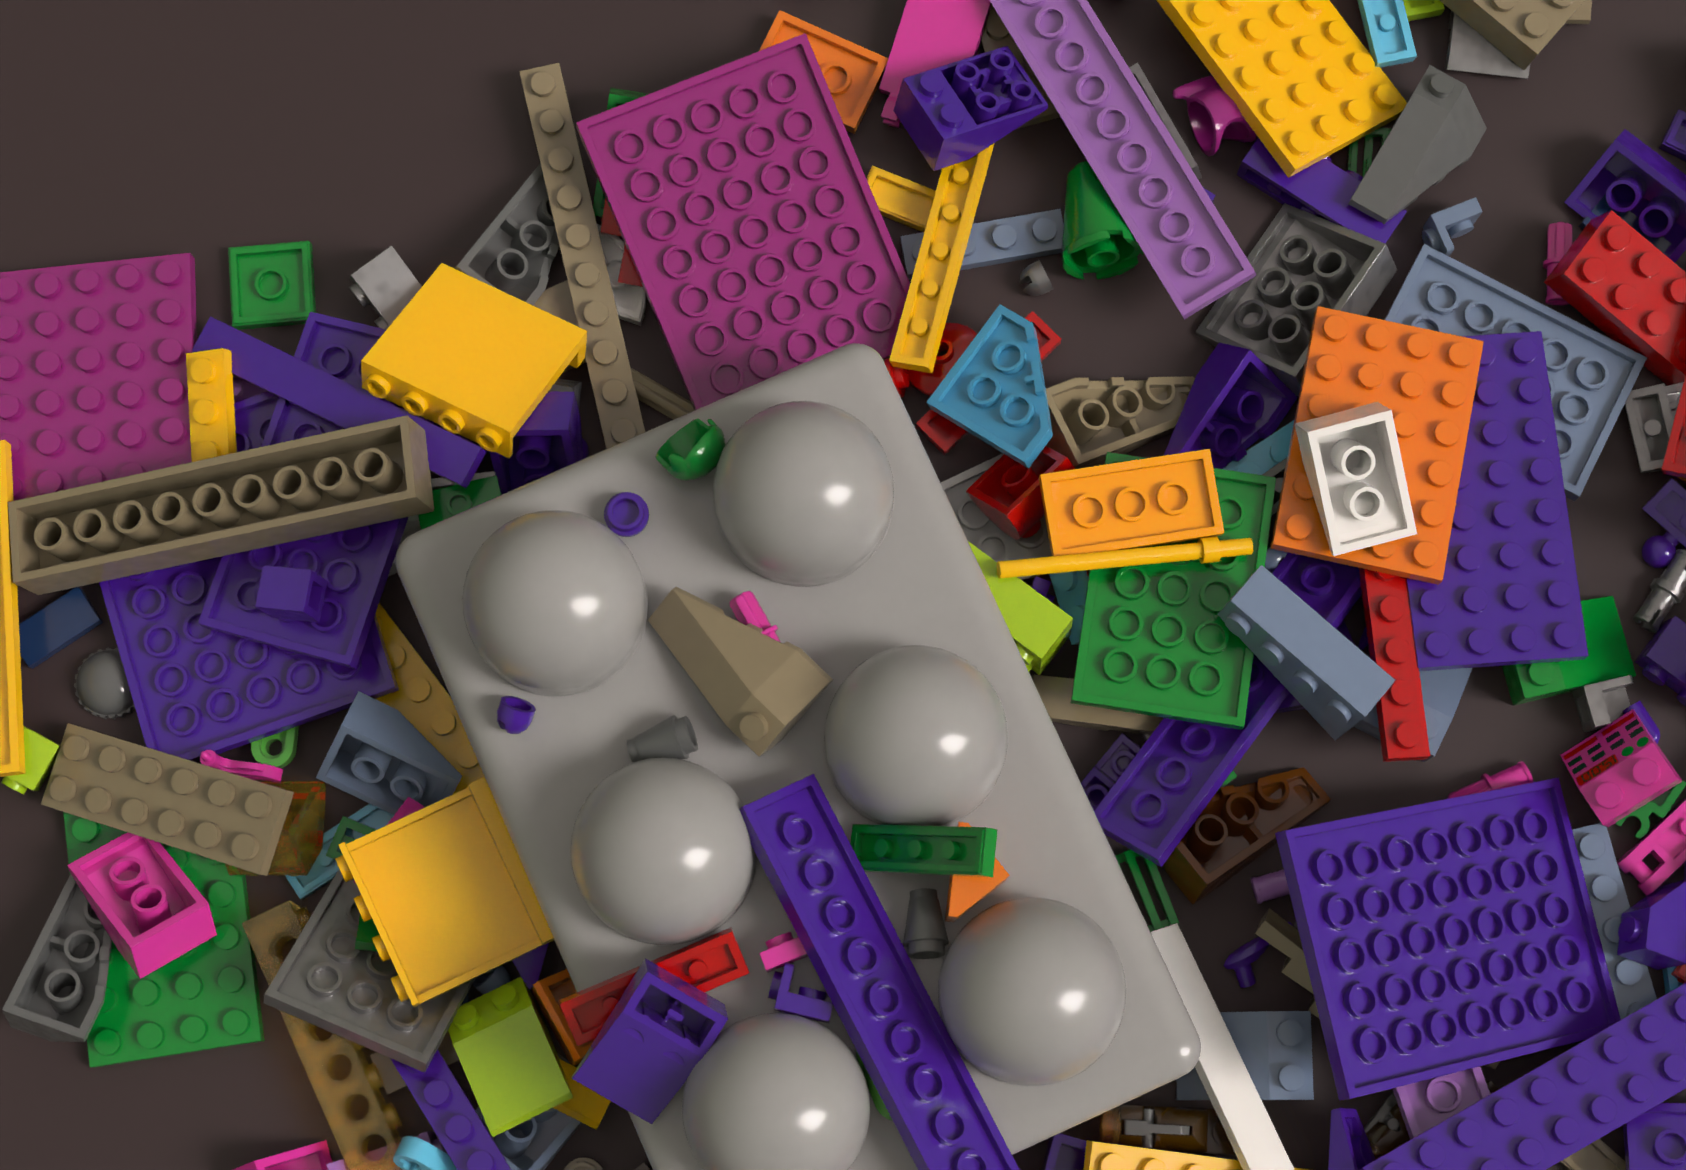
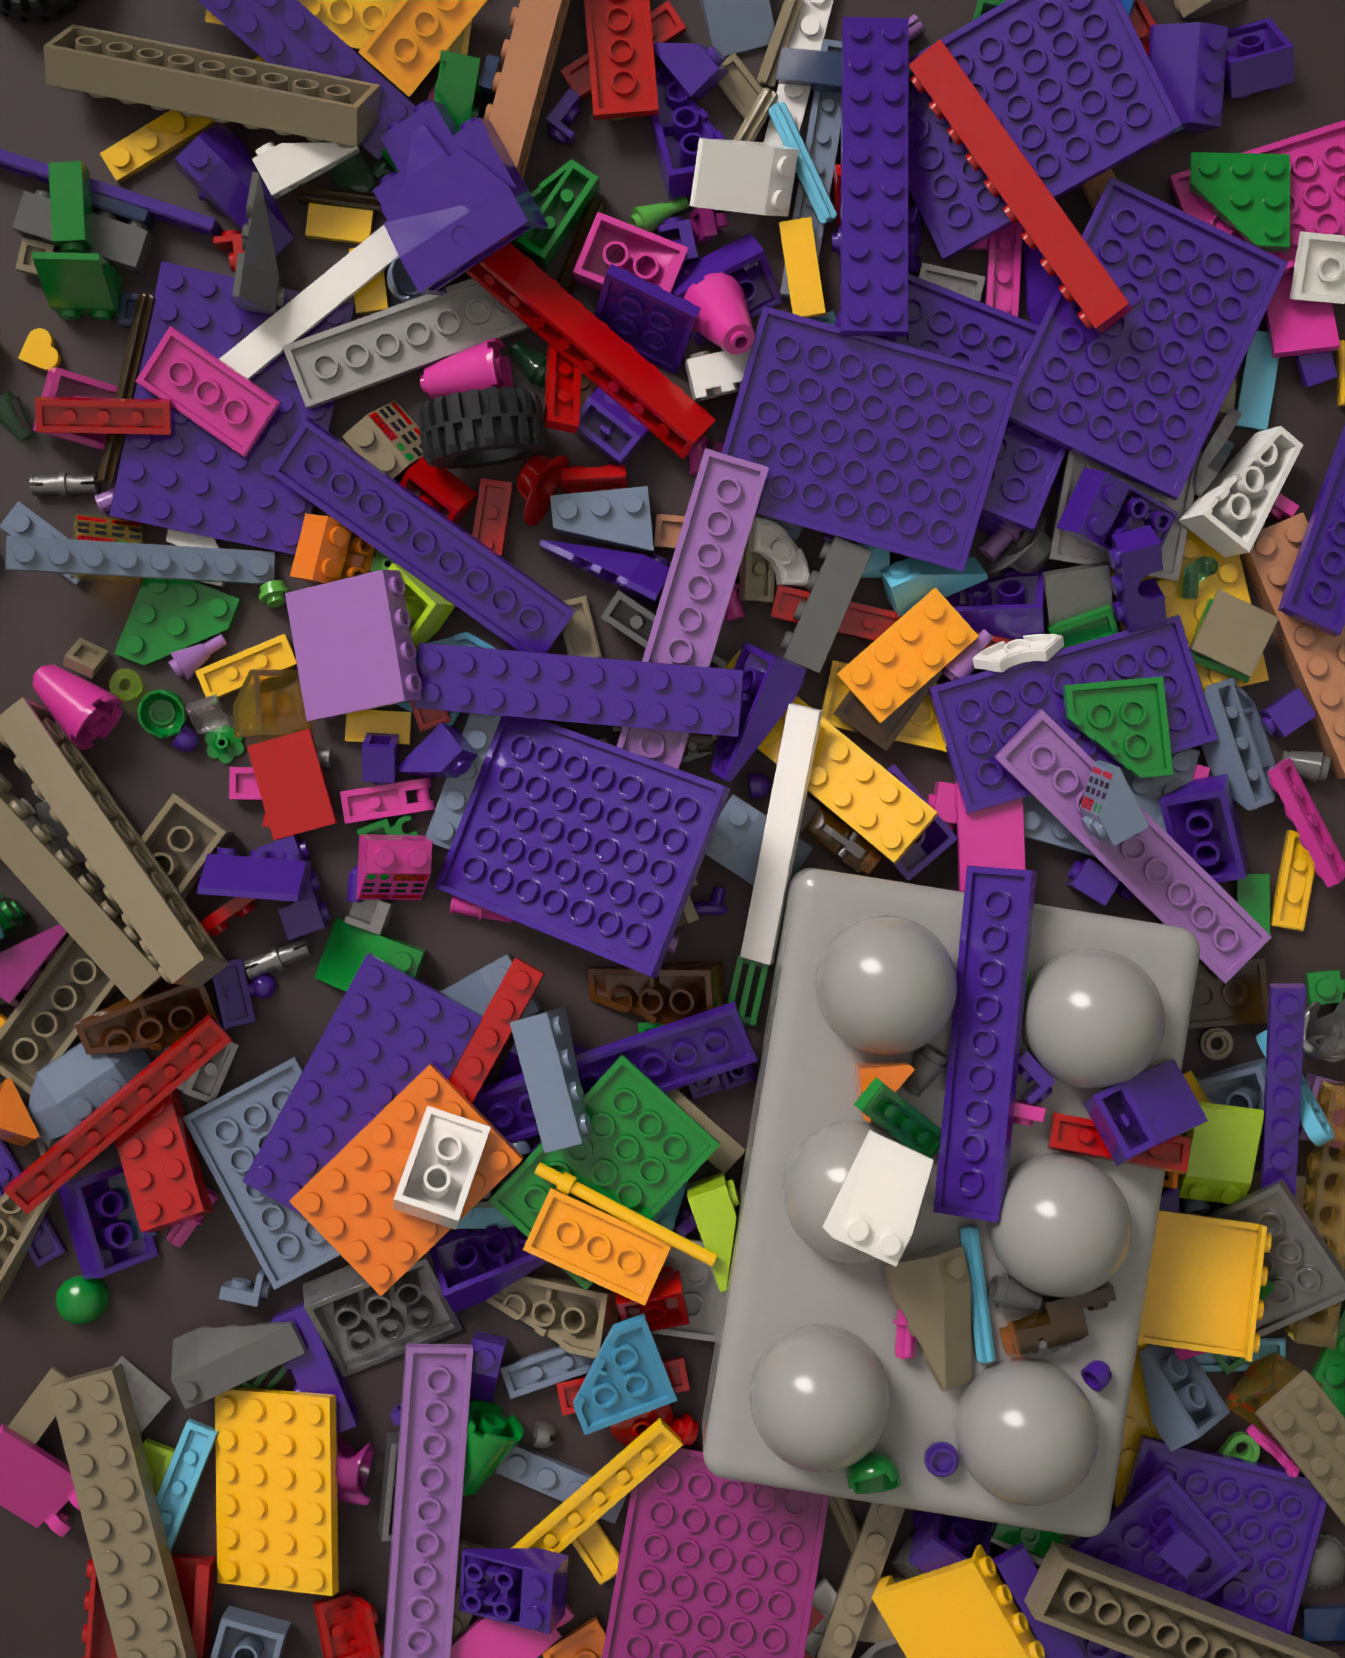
camera: 150 degrees left, 10 degrees up
(592, 738) = (1057, 1327): none -> dark brown plate
(703, 717) = (979, 1300): none -> medium azure axle
(901, 745) = (880, 1198): none -> white slope
(1085, 342) = (543, 1370): none -> sand blue plate
(1149, 309) = (486, 1364): none -> dark purple slope
(1288, 1128) = (758, 785): none -> dark purple hinge
(1608, 108) = (82, 1299): none -> green hair

